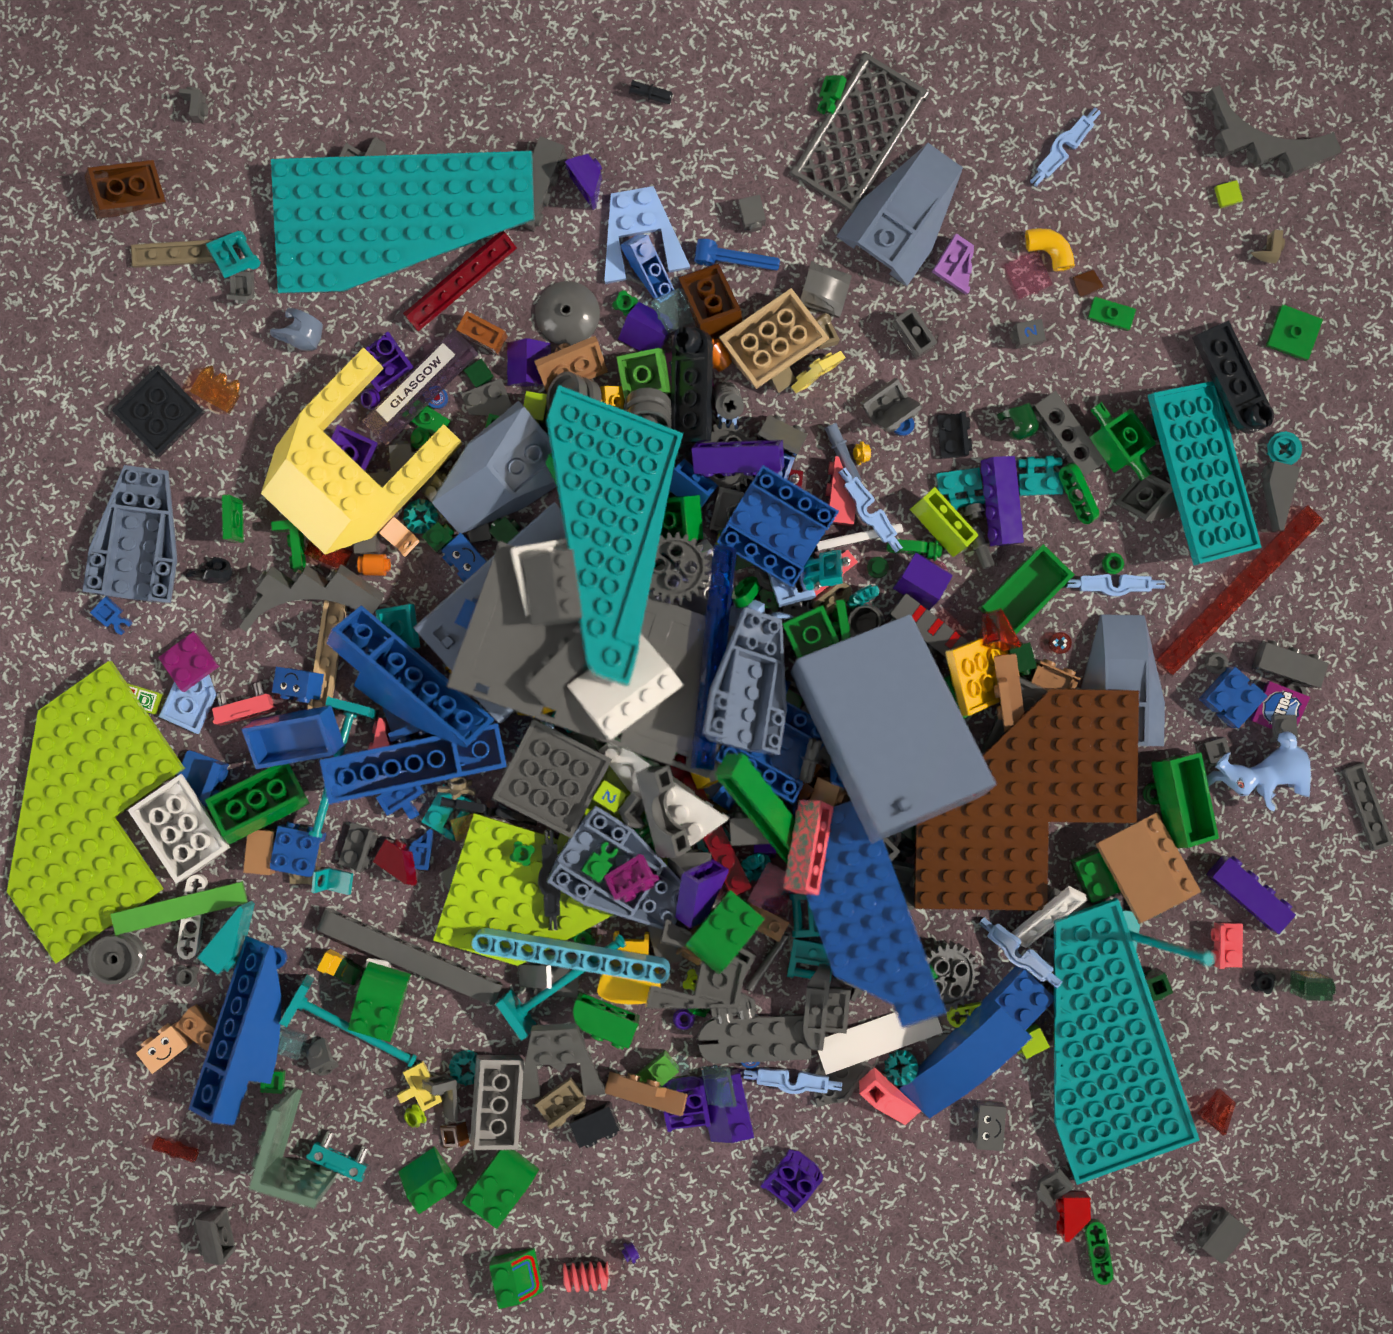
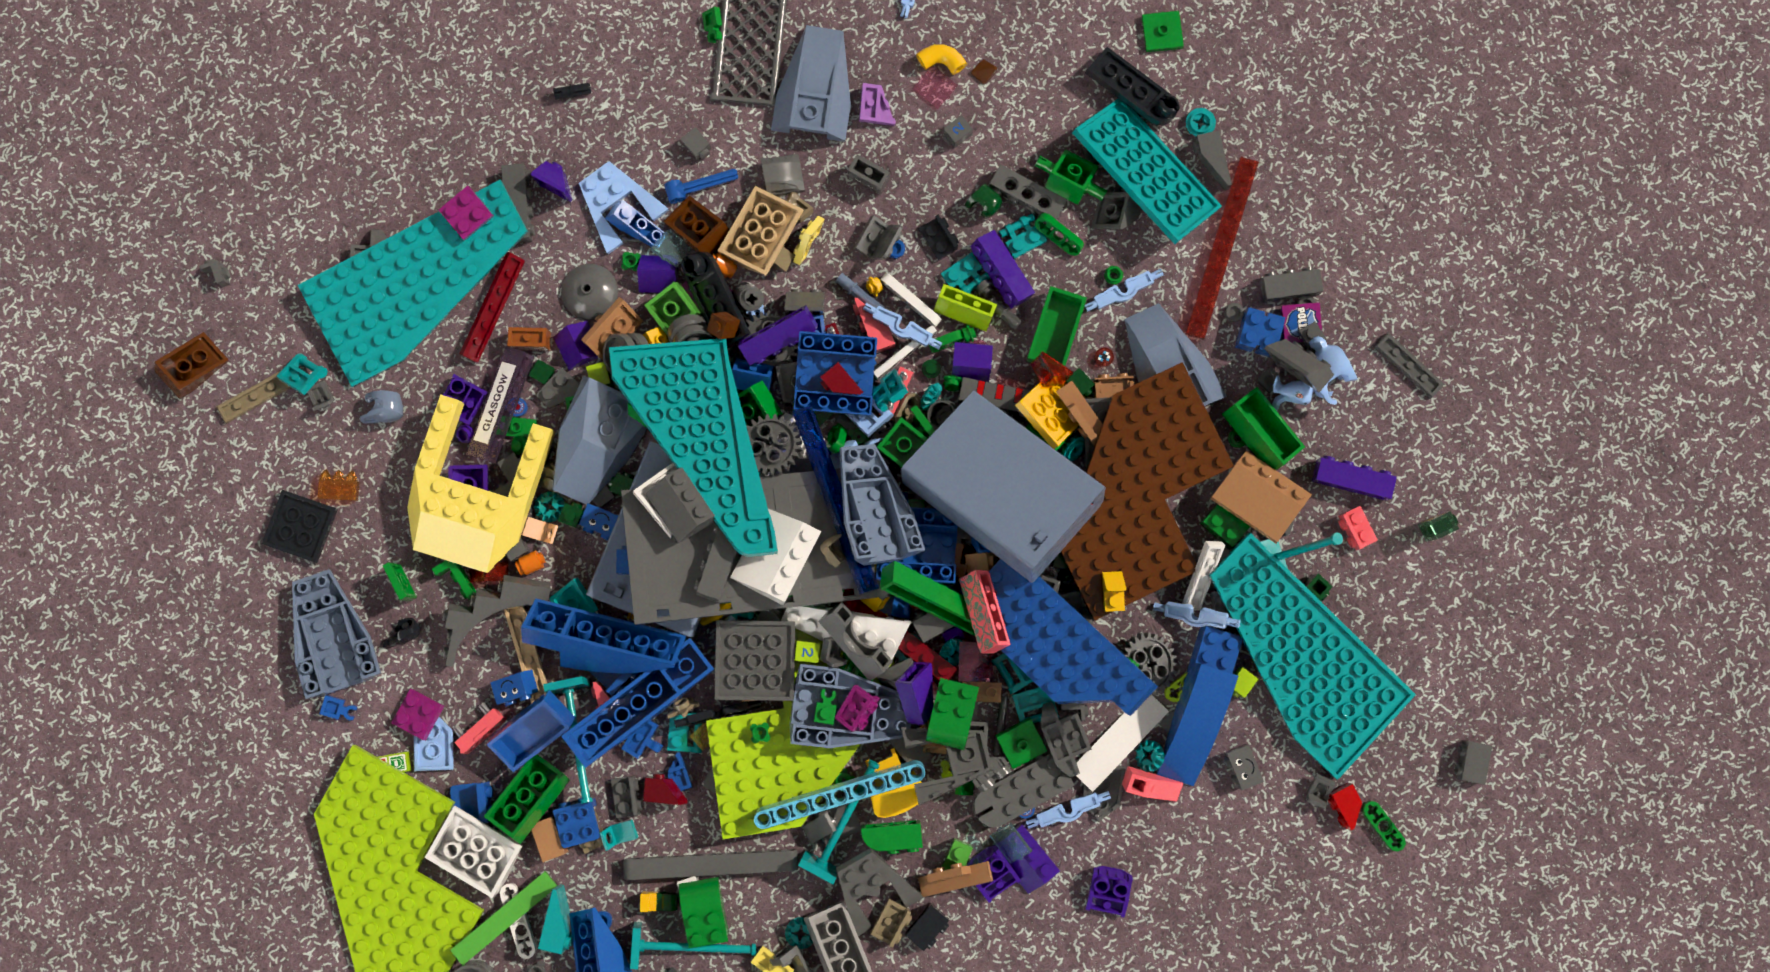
camera: 20 degrees left, 5 degrees down
(479, 169) = (466, 212): none -> magenta plate
(550, 893) = (799, 752): black piece -> none
(683, 709) = (832, 553): none -> dark tan plate
(683, 1025) = (961, 808): dark purple plate -> none
(687, 419) = (723, 325): none -> reddish brown brick
(777, 536) = (839, 381): none -> dark red slope
(779, 991) = (1021, 743): none -> green plate
(810, 760) = (952, 543): dark grey axle -> none
(892, 485) = (910, 299): none -> white beam
(892, 592) = (952, 382): none -> green plate
(949, 889) = (1113, 591): none -> yellow slope
(981, 721) = (1073, 448): none -> teal gear
(1111, 313) = (1014, 85): green plate -> none
(1218, 1111) = (1418, 664): clear red slope -> none
(1259, 753) = (1300, 363): none -> dark grey slope
(1269, 980) = (1404, 538): black plate -> none

